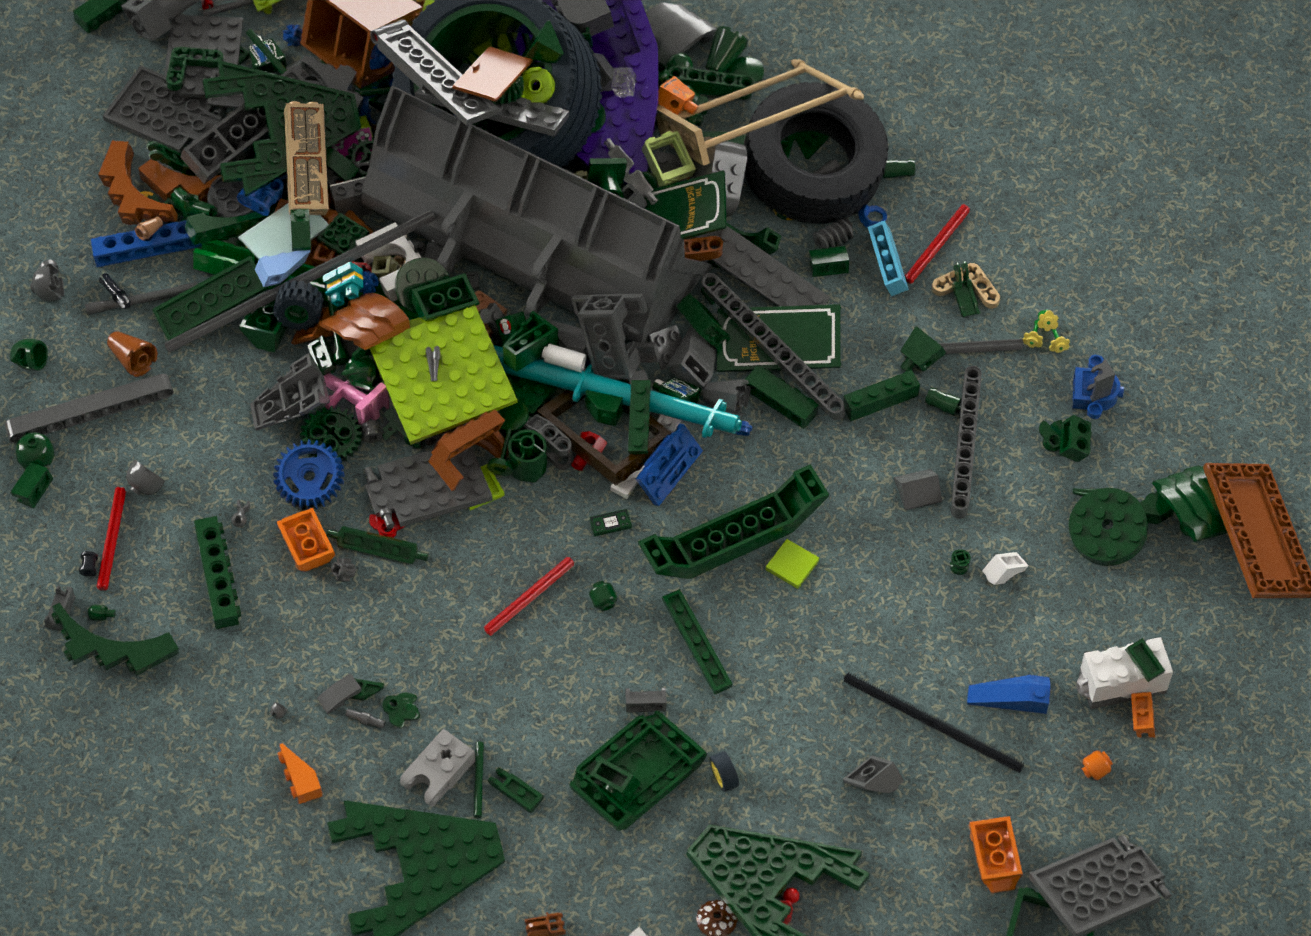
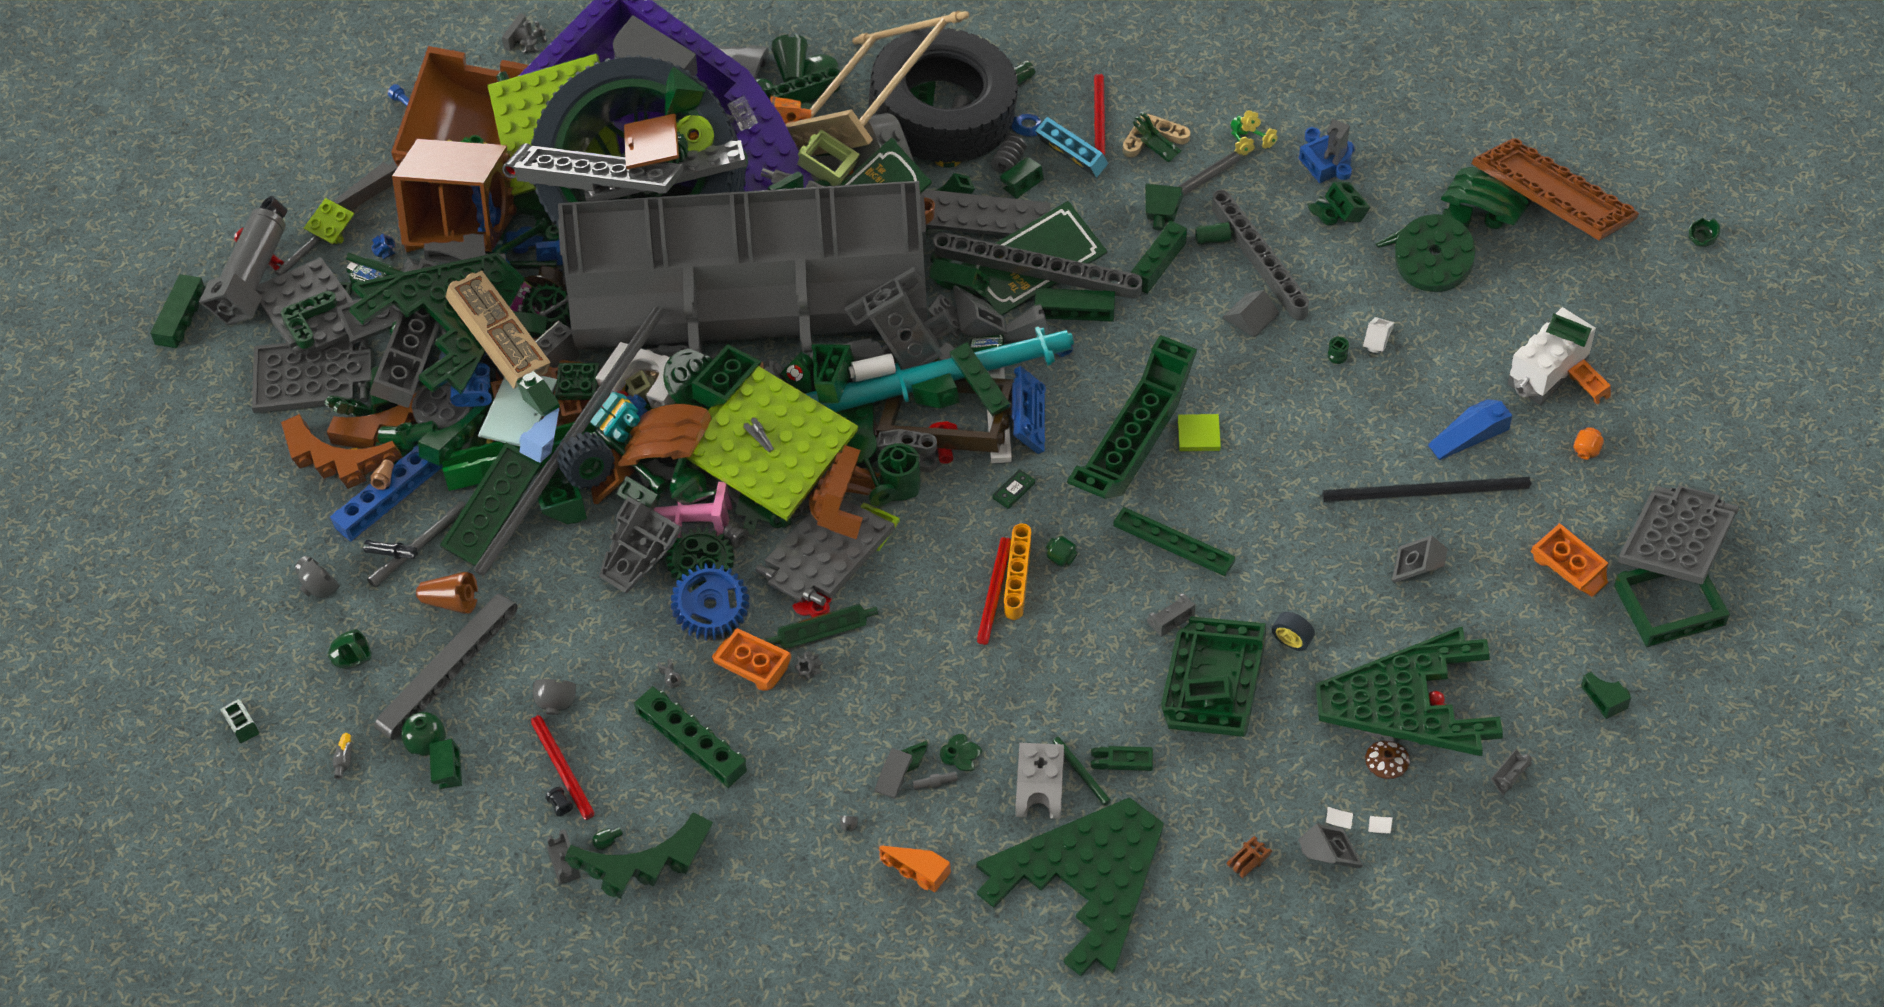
camera: 30 degrees left, 5 degrees down
(553, 599) = (1017, 581): none -> light orange beam

